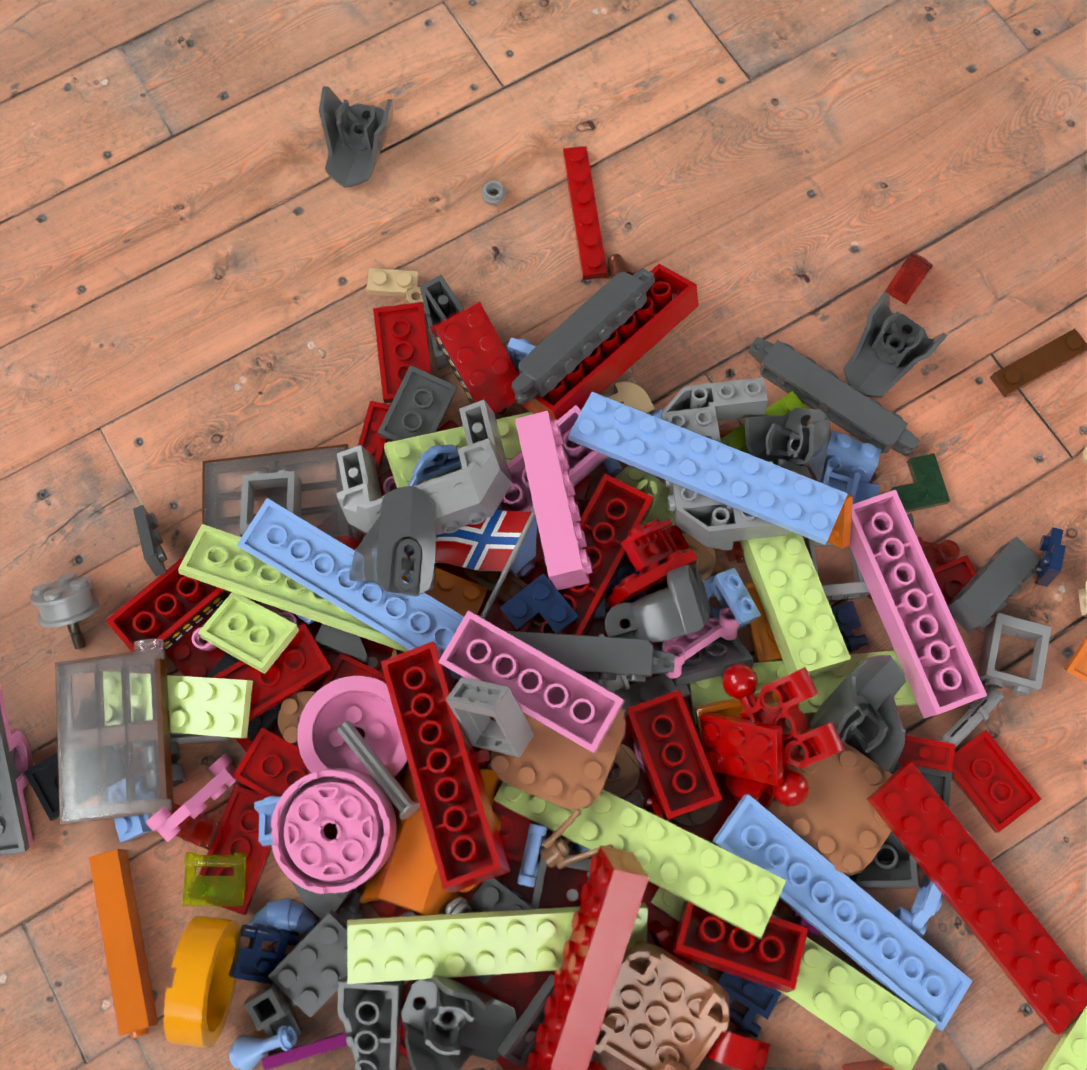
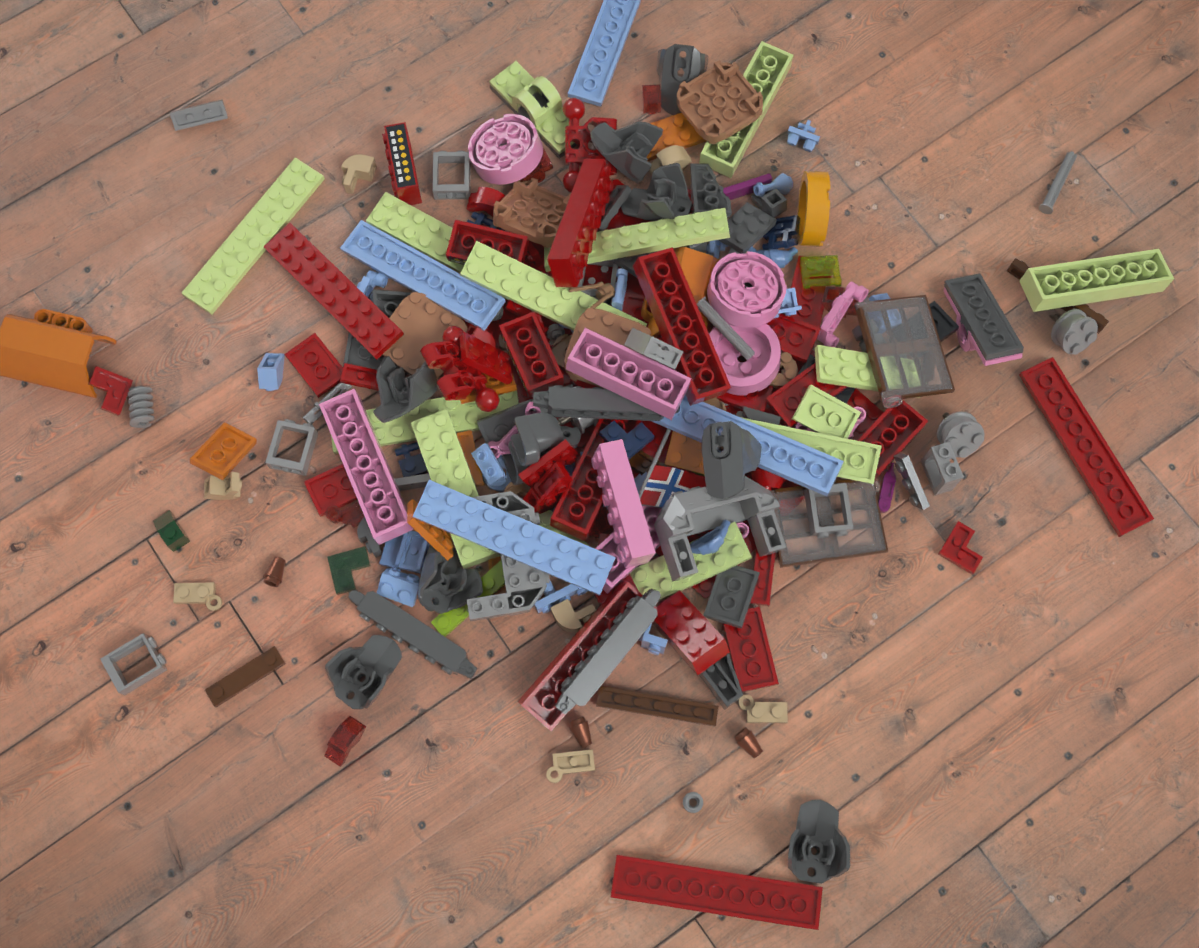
camera: 175 degrees right, 0 degrees up
(106, 557) = (939, 470): none -> light grey window
(112, 458) = (956, 550): none -> red plate
(123, 943) = (871, 238): orange brick -> none
(186, 537) = (887, 490): none -> magenta piece
(421, 250) = (748, 742): none -> copper cone
(478, 103) = (717, 892): none -> red plate
(517, 293) = (657, 706): none -> reddish brown plate
(584, 213) = (614, 791): red plate -> none
(635, 240) = (571, 763): none -> tan hinge
(992, 585) = (303, 489): dark grey brick -> none
(1018, 483) = (274, 573): none -> copper cone
(1052, 557) = (260, 509): dark blue plate -> none
(1058, 774) = (271, 371): none -> light blue slope

